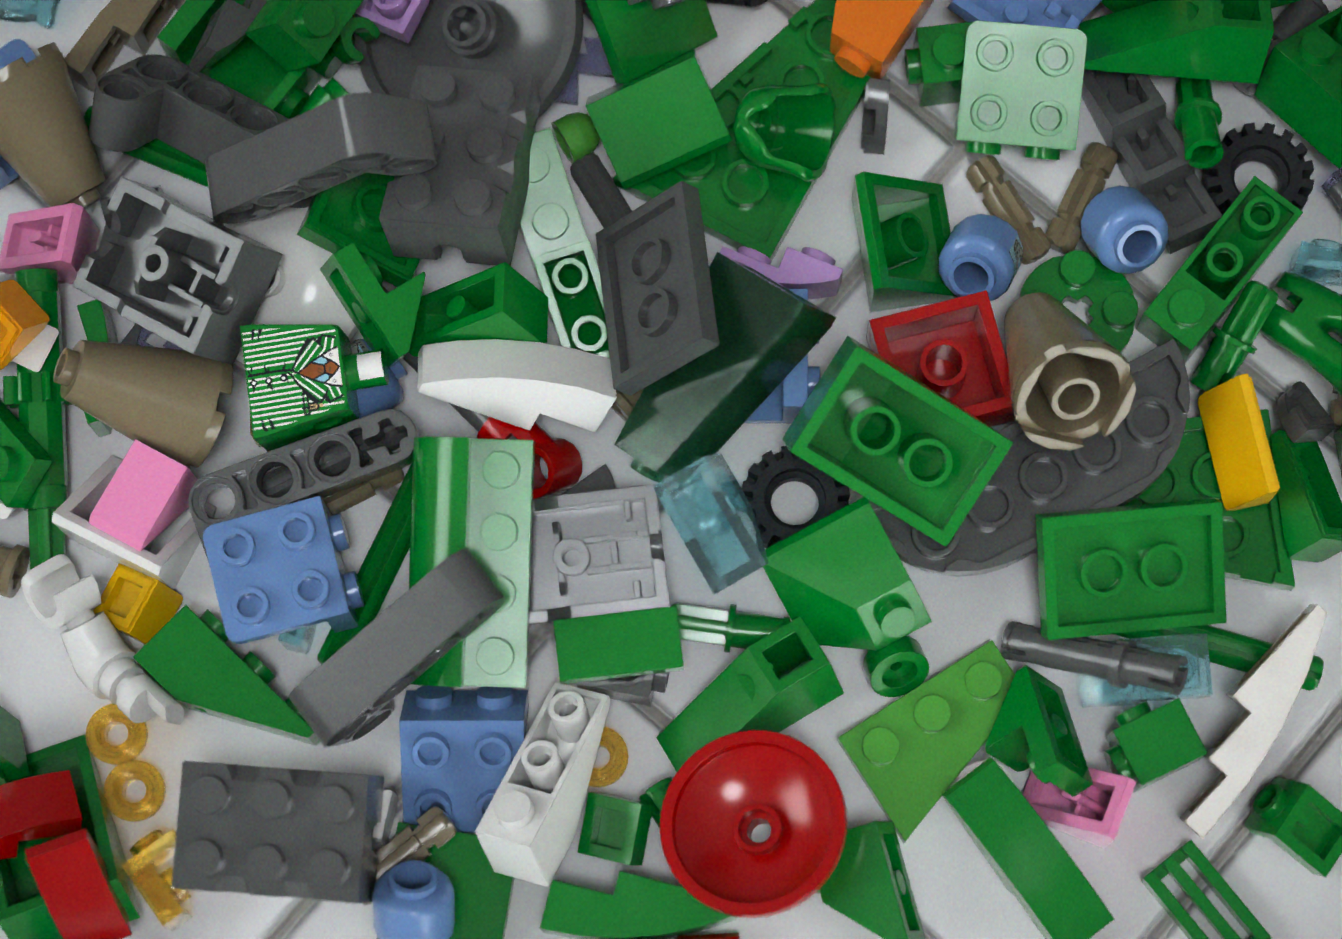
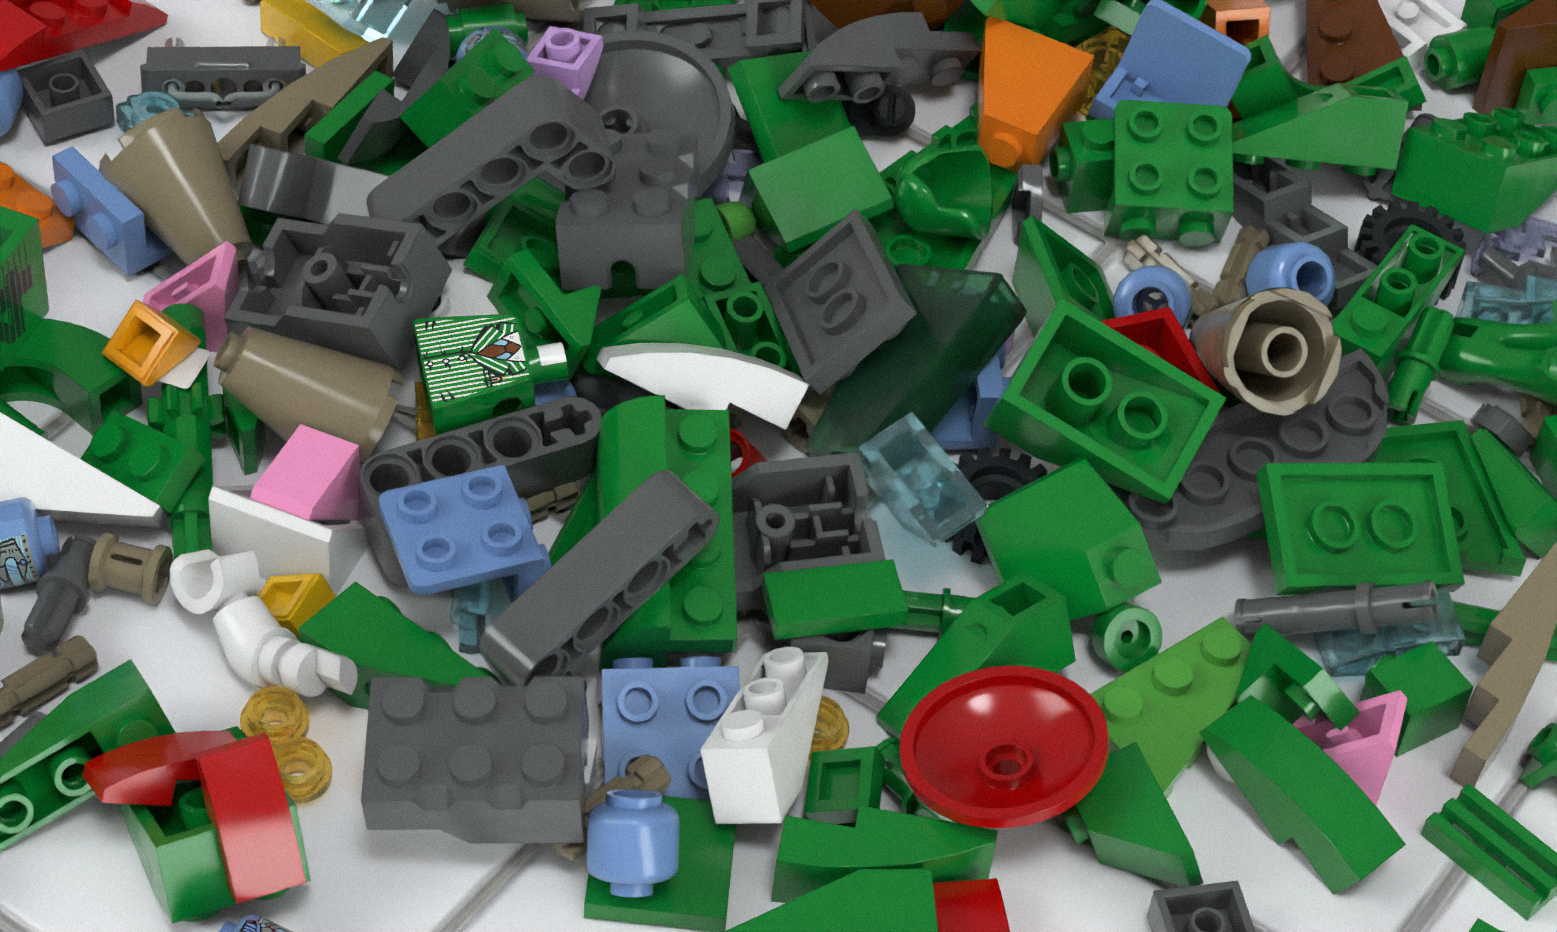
camera: 15 degrees left, 30 degrees down
(154, 884) = (332, 847): clear yellow bracket -> none
(1199, 122) = (1345, 201): green axle -> none
(1238, 444) = (1446, 430): yellow slope -> none

